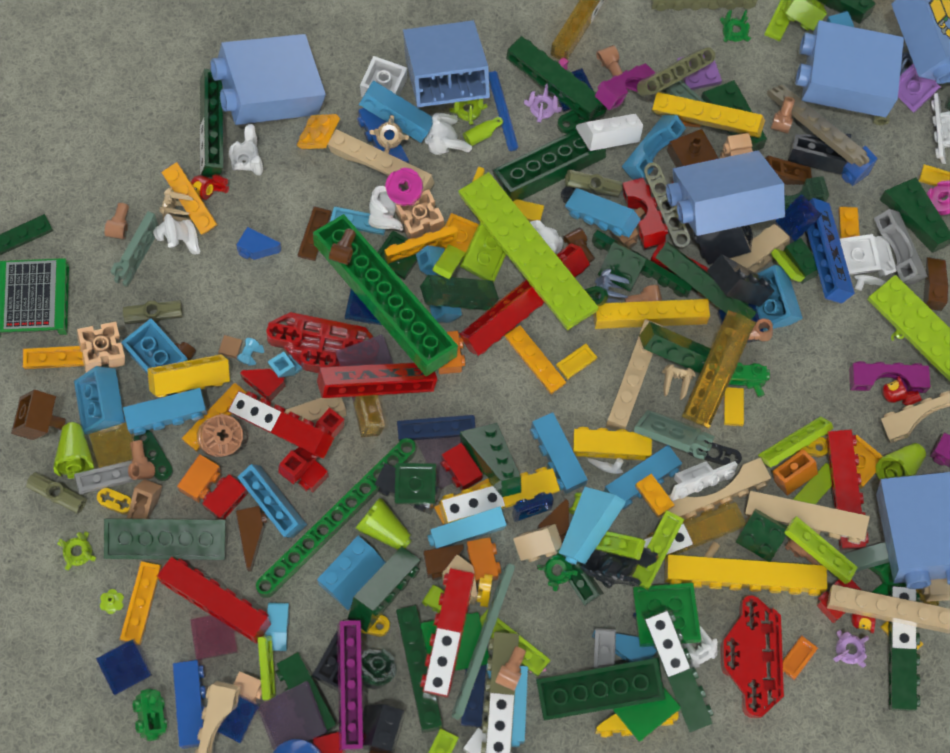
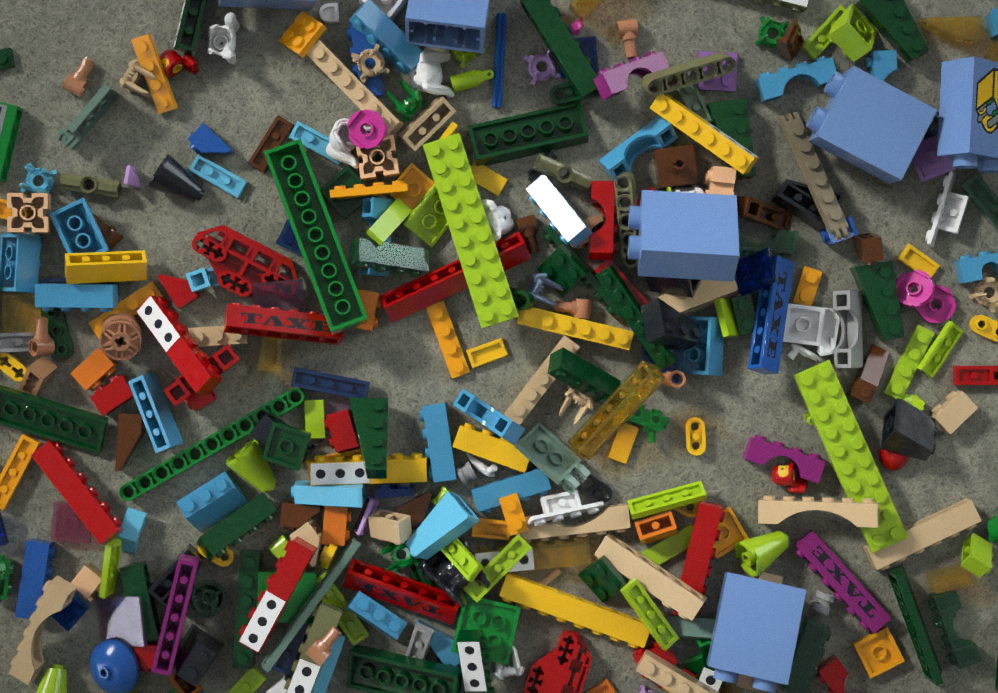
camera: 25 degrees right, 20 degrees up
(93, 316) = (34, 172): none -> medium azure piece
(177, 231) = (133, 108): white hair -> none
(190, 296) = (131, 177): none -> lavender slope
(230, 347) = (158, 242): medium nougat tile -> none
(235, 285) = (176, 181): none -> black cone
(250, 346) = (177, 247): medium azure piece -> none
(272, 274) = (218, 176): none -> medium azure tile
(337, 108) = (329, 13): none -> white tile
(343, 250) = (284, 184): reddish brown pin -> none
(429, 455) = (315, 418): none -> lime tile
(438, 157) = (415, 99): none -> green piece
(455, 175) = (426, 123): none -> tan brick
(508, 546) = (369, 506): none -> lavender slope
(551, 635) = (376, 615): none -> dark azure brick
(570, 605) = (400, 591): none -> red brick
(595, 474) = (466, 472): none -> light grey wheel
(611, 131) = (599, 119): white slope -> none
(620, 407) = (489, 416): none -> dark azure arch
(636, 521) = (491, 529): none -> light orange plate
(752, 68) = (772, 85): none -> dark azure arch
(754, 28) = (791, 42): none -> reddish brown piece
(782, 120) = (783, 154): nougat pin -> none
(799, 381) = (695, 436): none -> yellow plate
(890, 172) = (868, 248): none -> reddish brown slope

